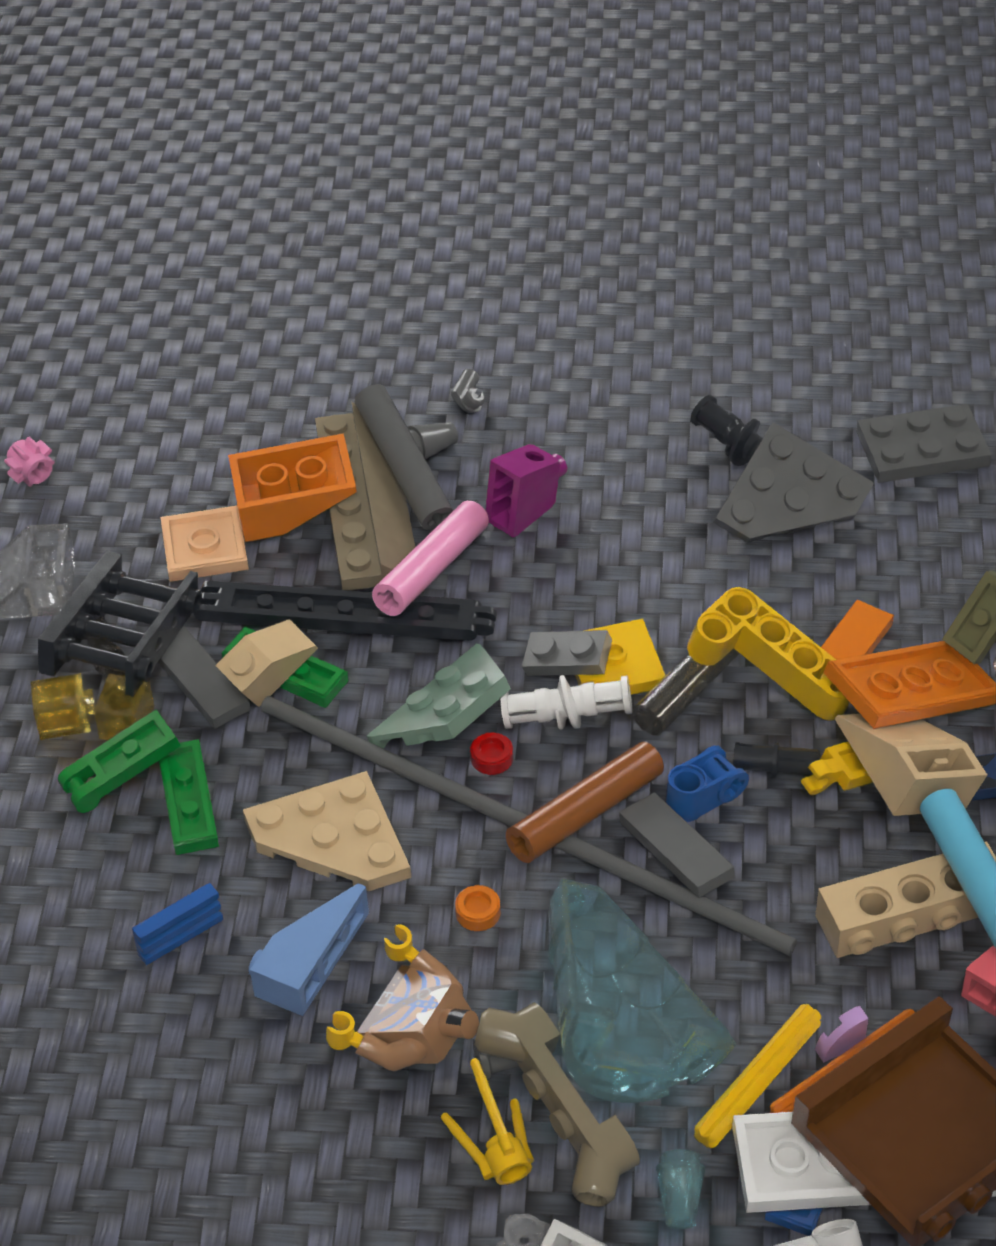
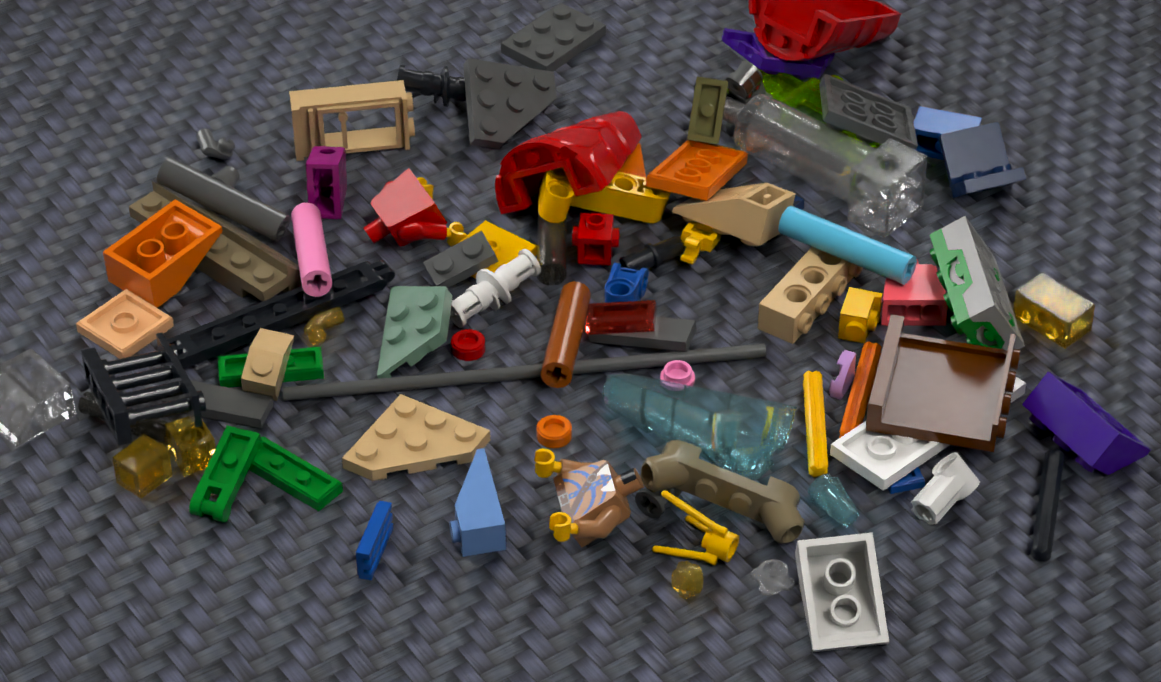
camera: 40 degrees left, 5 degrees down
(373, 643) = (315, 327): none -> clear yellow arm
(428, 1179) = (687, 579): none -> clear yellow plate
(565, 395) = (311, 104): none -> tan door
(568, 566) = (410, 213): none -> torso
(662, 815) = (621, 317): none -> clear red tile
(663, 922) = (678, 372): none -> bright pink plate
(726, 705) = (595, 238): none -> red brick
(782, 596) = (586, 150): none -> red cone
(931, 969) = (859, 314): none -> yellow brick

